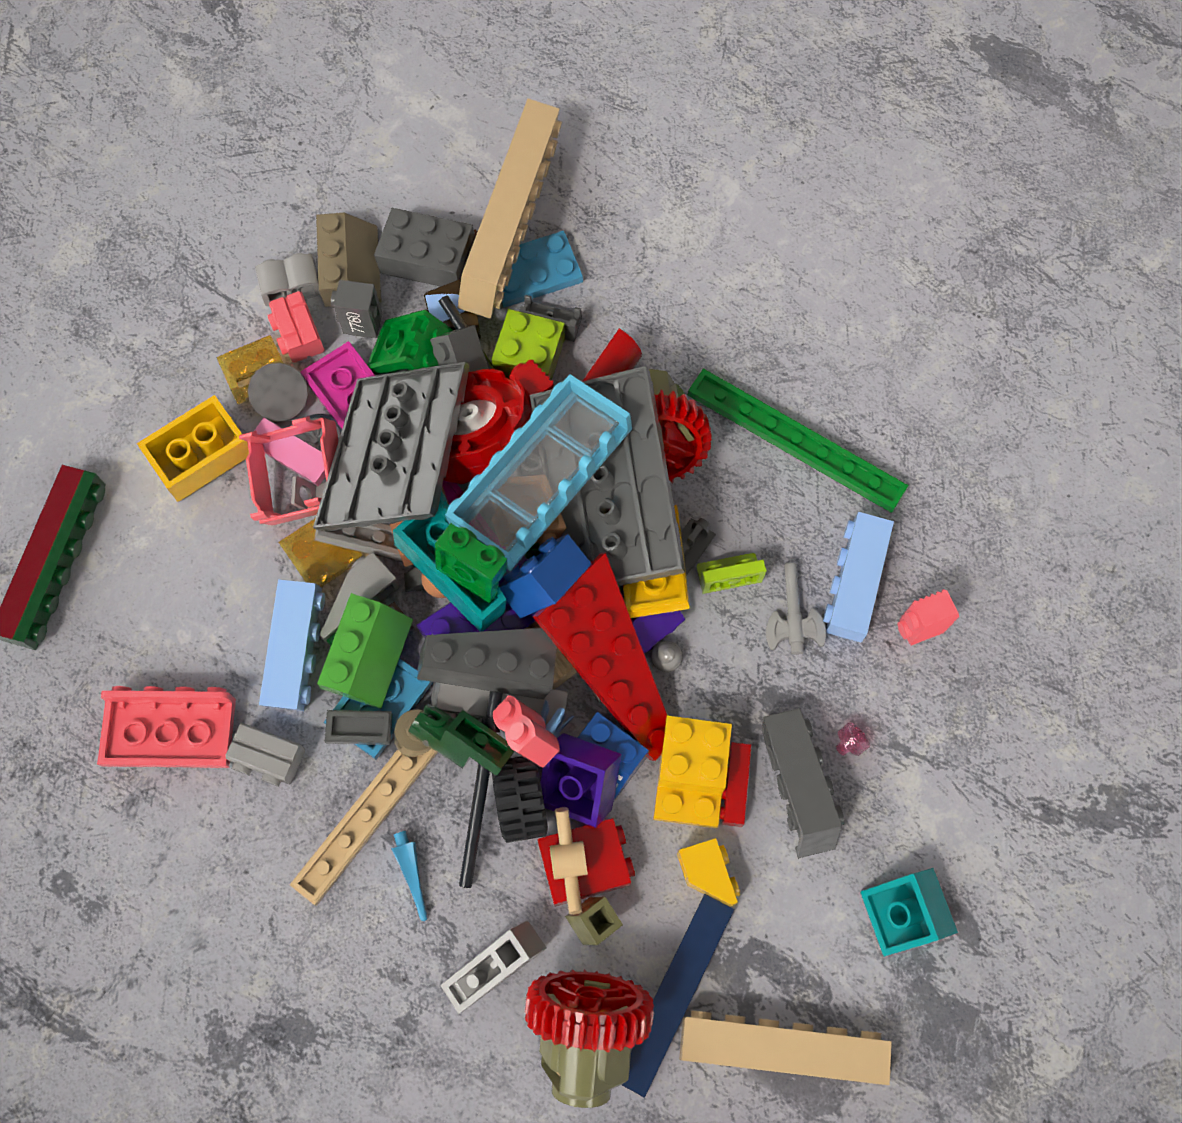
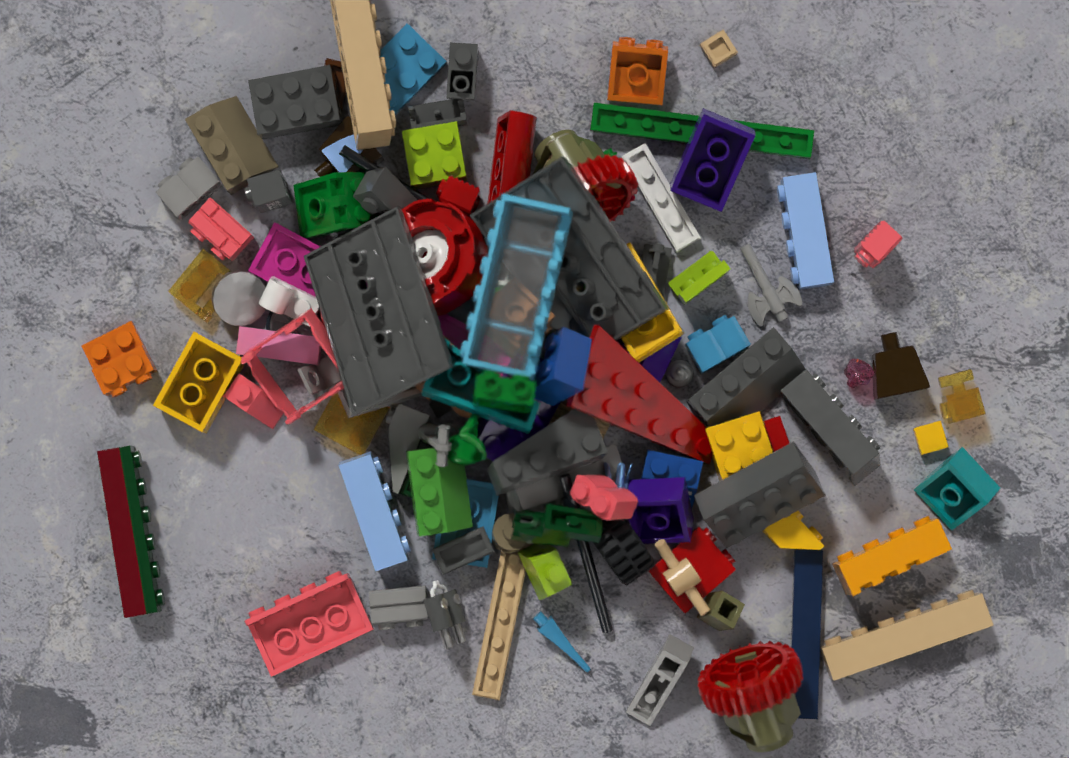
camera: 20 degrees left, 15 degrees up
(137, 399) = (119, 359): none -> orange plate
(235, 487) = (253, 401): none -> coral slope
(305, 781) = (445, 612): none -> dark grey piece
(314, 402) = (287, 299): none -> white plate
(391, 597) = (439, 437): none -> light grey pin
(411, 616) = (466, 445): none -> green piece
(430, 788) = (545, 570): none -> lime torso
(594, 285) = (462, 71): none -> dark grey slope
(692, 812) = (759, 495): none -> dark grey brick
(718, 644) = (716, 344): none -> dark azure brick
(727, 486) = (660, 199): none -> white tile
(734, 692) = (748, 381): none -> dark grey slope
(758, 359) = (637, 71): none -> orange plate
(795, 462) = (712, 159): none -> dark purple brick
(807, 950) = (891, 555): none -> light orange wedge
(845, 376) = (718, 48): none -> tan tile
(895, 756) = (896, 369): none -> dark brown torso
(901, 844) = (930, 437): none -> yellow tile
(950, 822) = (962, 403): none -> clear yellow brick

